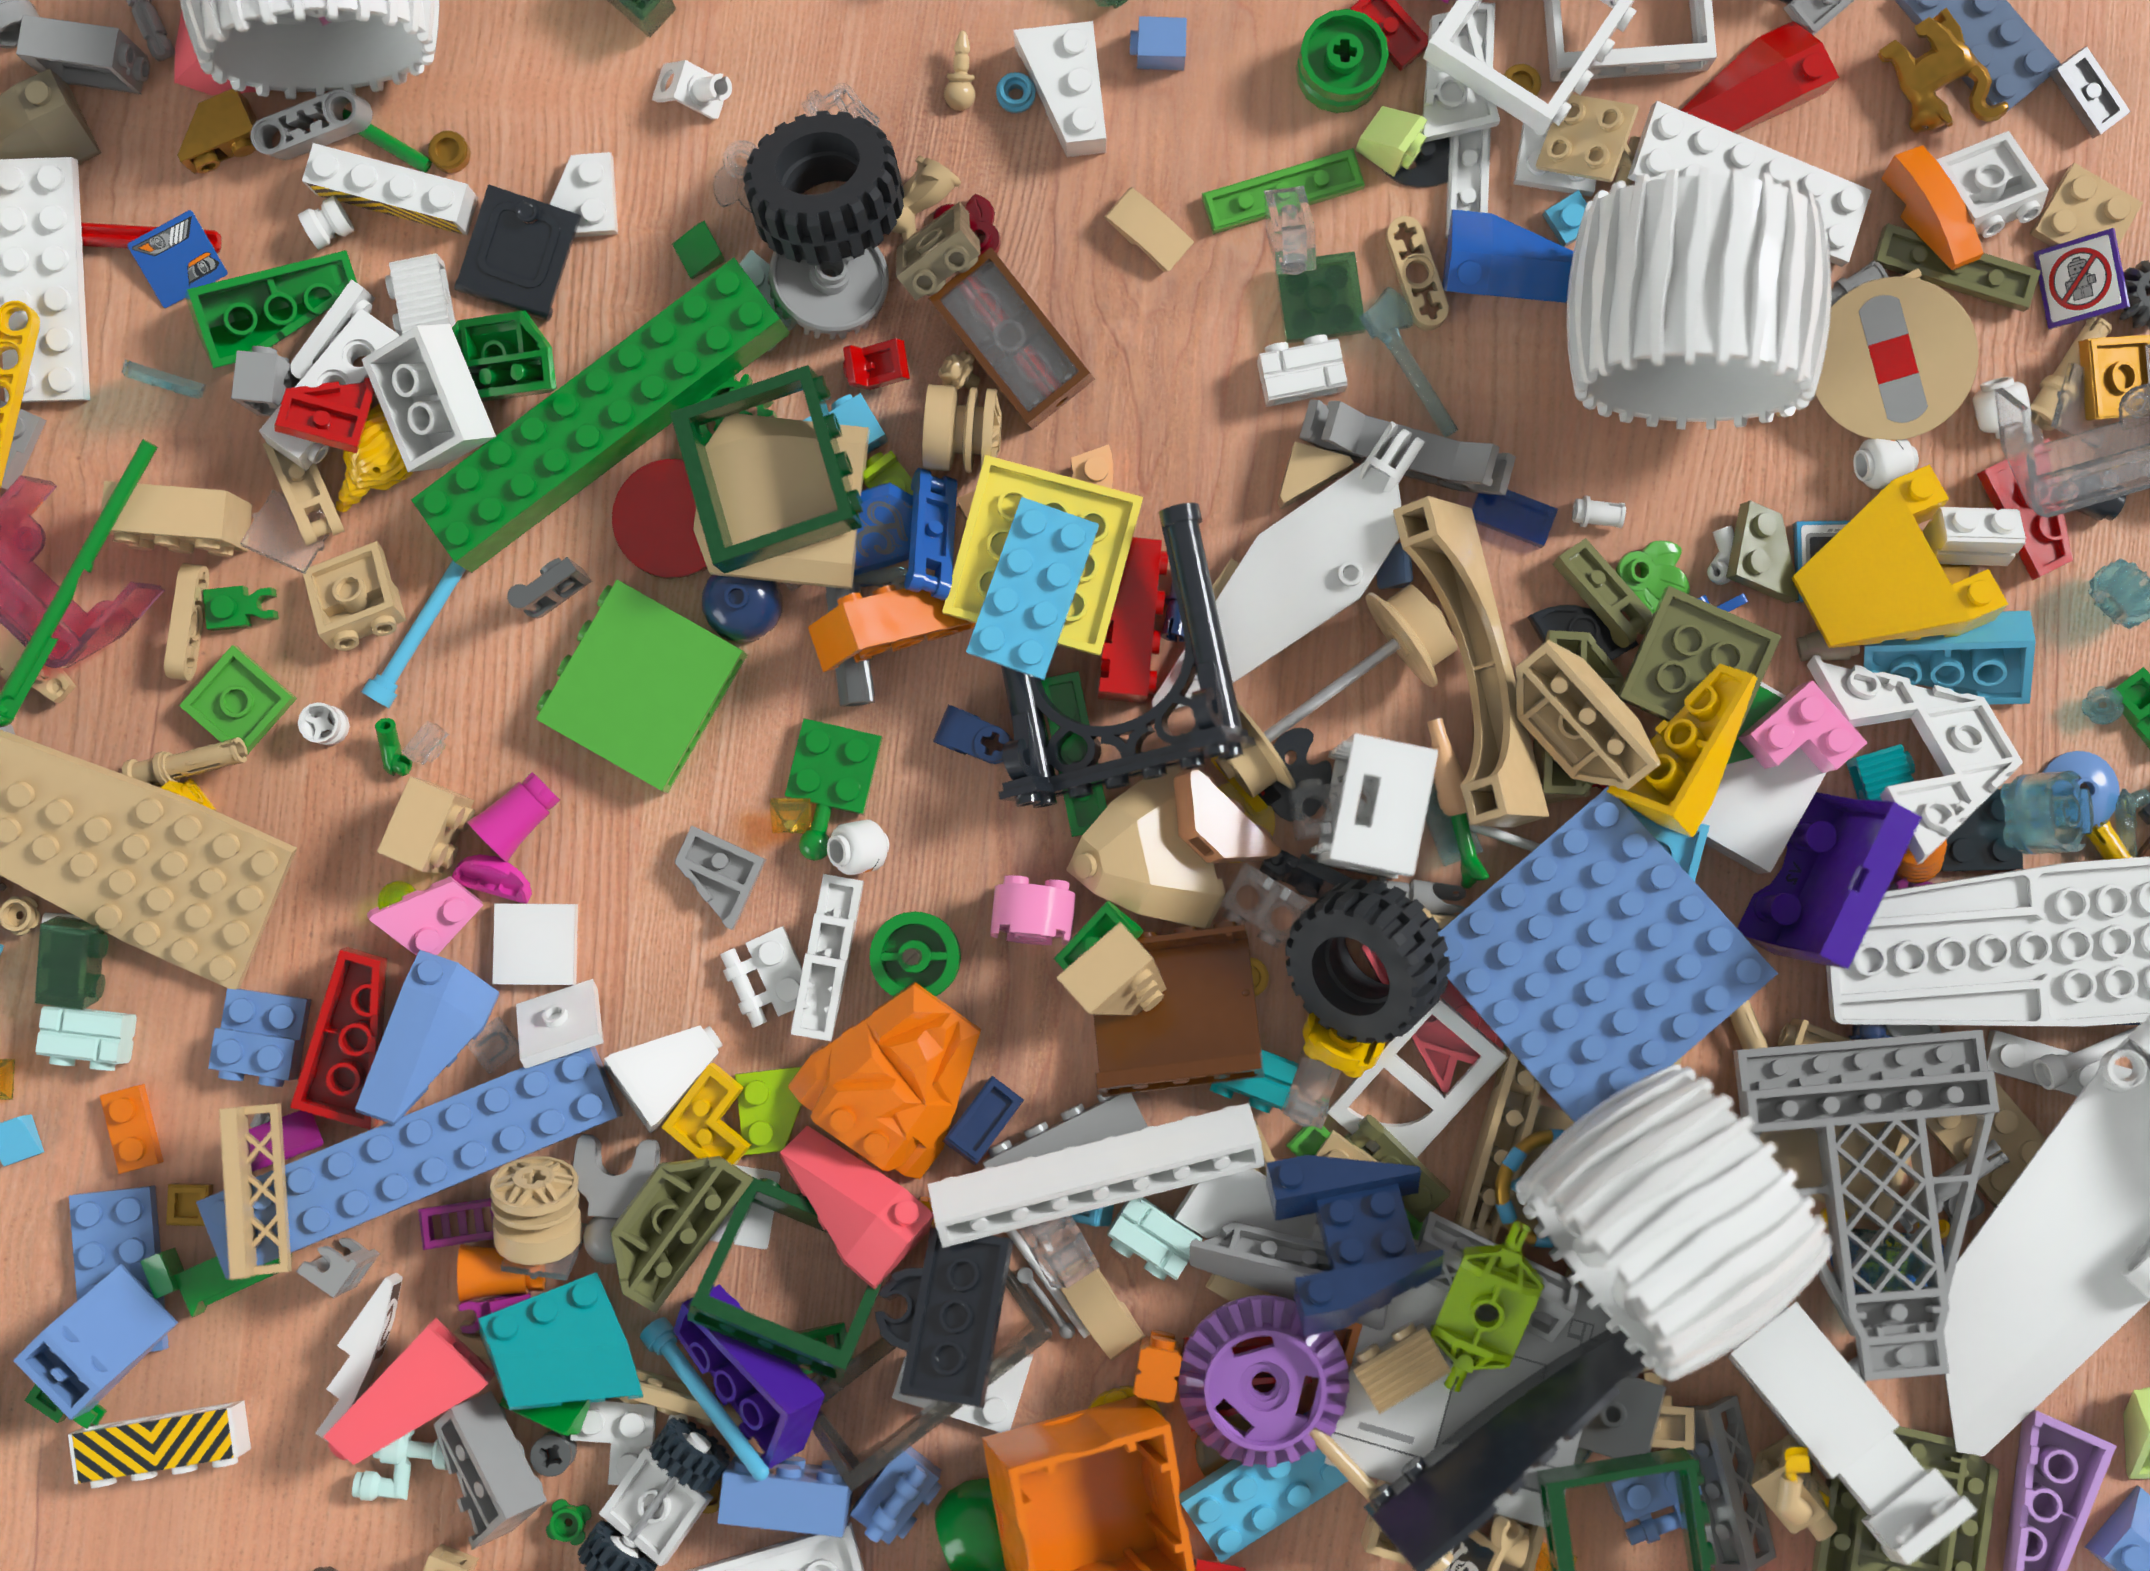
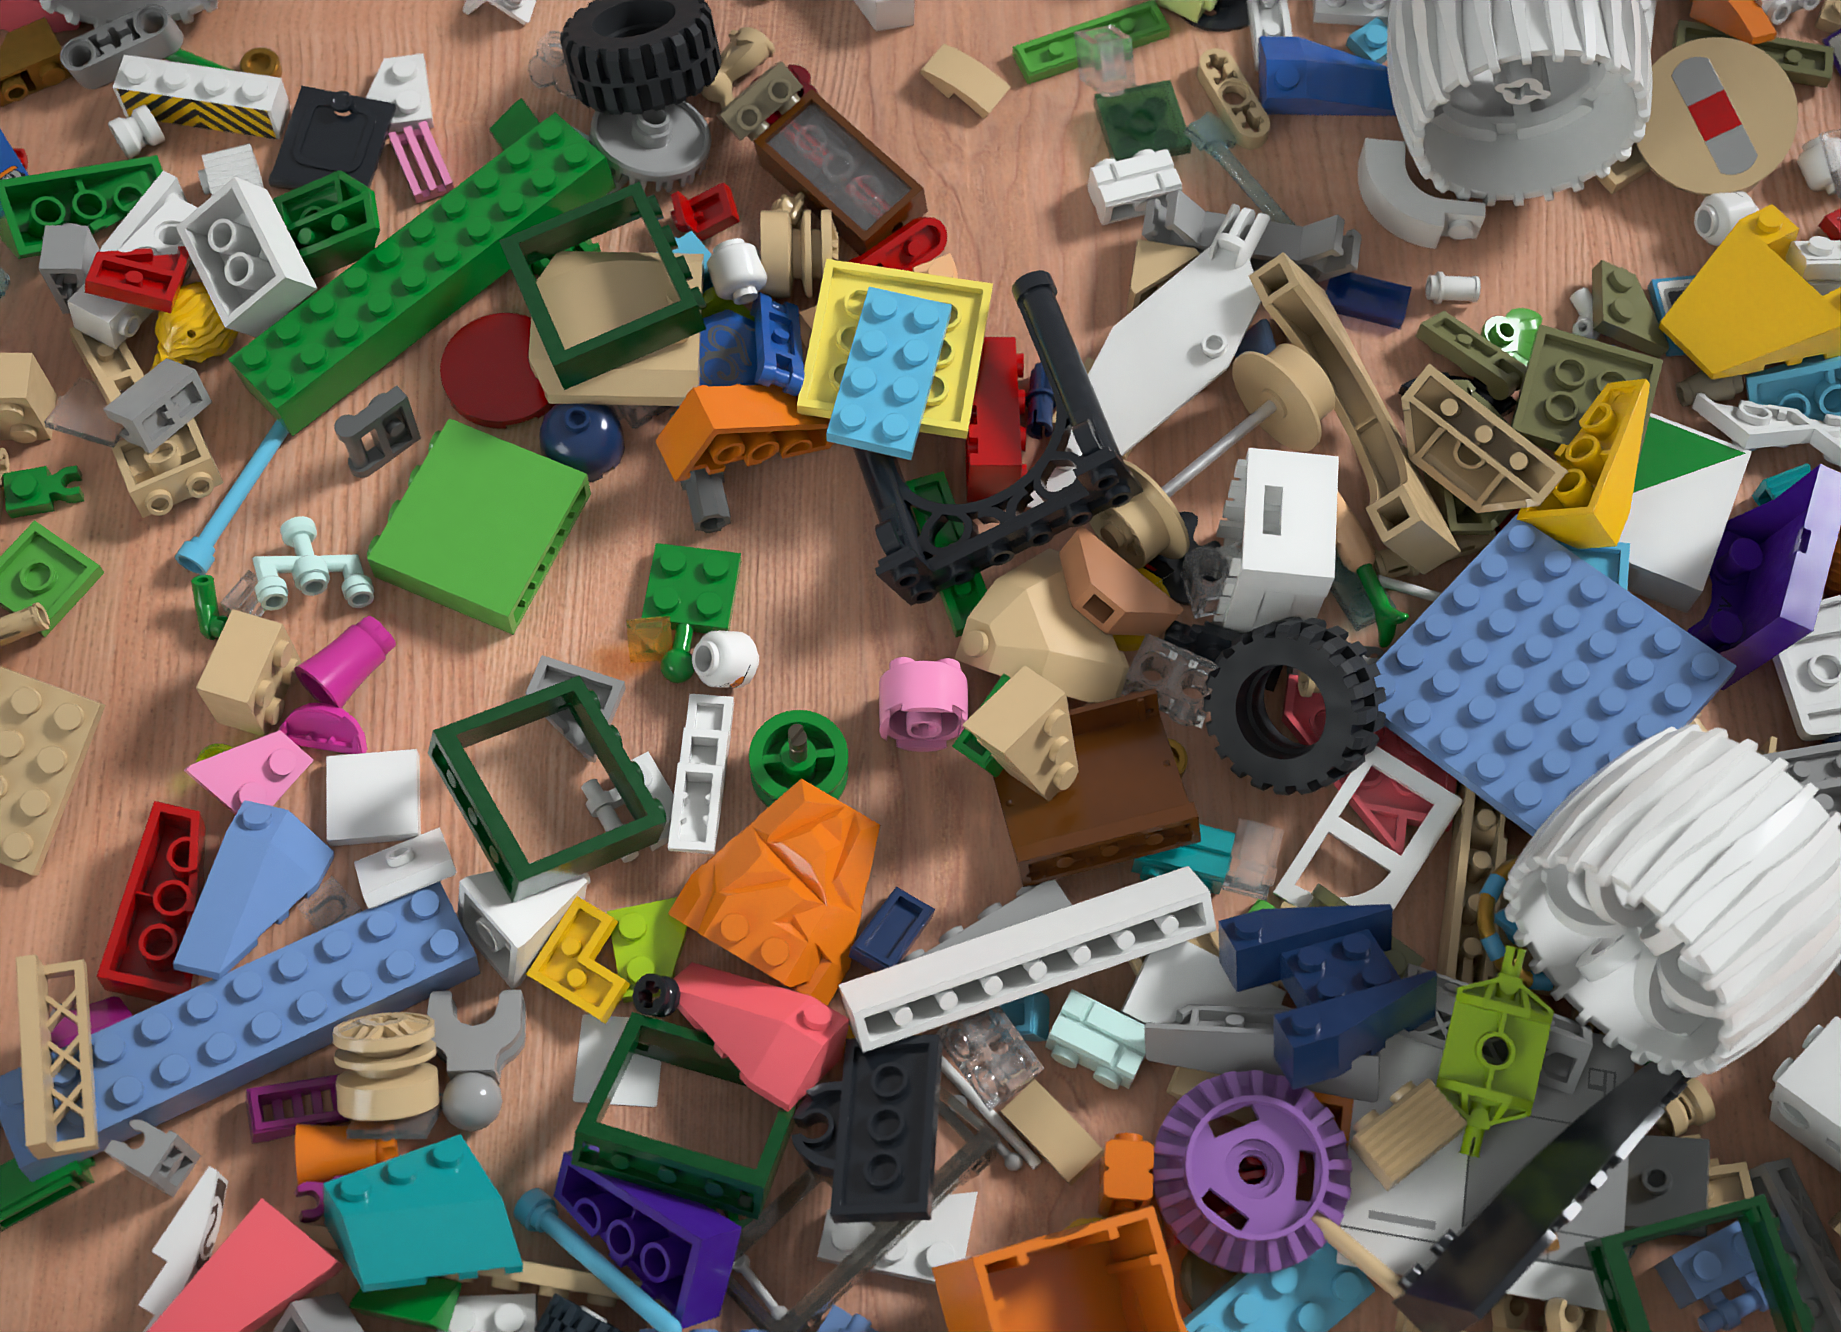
camera: 10 degrees left, 20 degrees down
(260, 1037) = (61, 918): medium blue plate -> none
(315, 721) = (133, 580): white wheel -> none
(345, 538) = (159, 404): none -> light grey hinge
(482, 721) = (308, 570): none -> light aqua piece
(593, 246) = (411, 137): none -> bright pink tile
(624, 994) = (486, 822): none -> dark green window
(672, 1224) = (546, 1066): olive wedge -> none
(761, 1163) = (649, 985): none -> black bush
(854, 1451) = (742, 1266): none -> white hinge
(898, 452) = (736, 271): none -> white head
(967, 735) = (838, 544): dark blue piece -> none
(1060, 431) = (908, 246): none -> red plate
(1337, 1052) = (1294, 811): yellow plate -> none
(1562, 416) = (1403, 206): none -> white arch
(1804, 721) = (1708, 437): bright pink brick -> none

